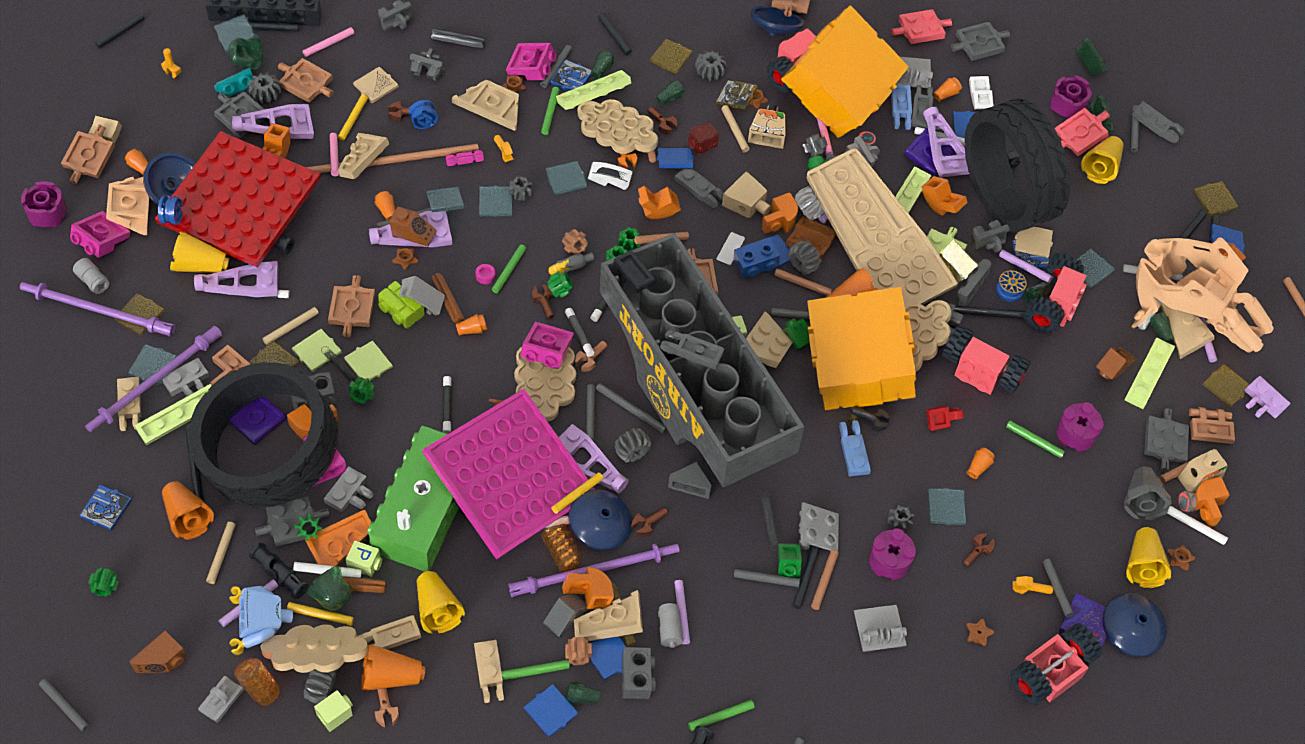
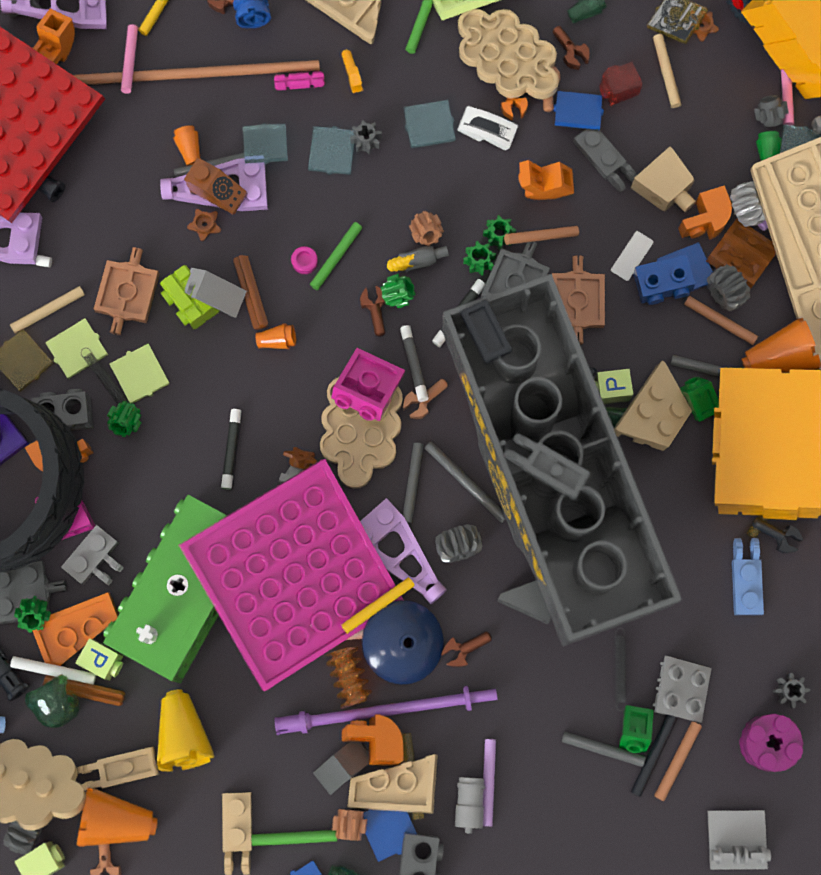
camera: 15 degrees right, 20 degrees up
(319, 613) = (32, 722): yellow bar -> none
(362, 154) = (165, 65): tan wing -> none
(768, 128) = (712, 76): tan torso -> none

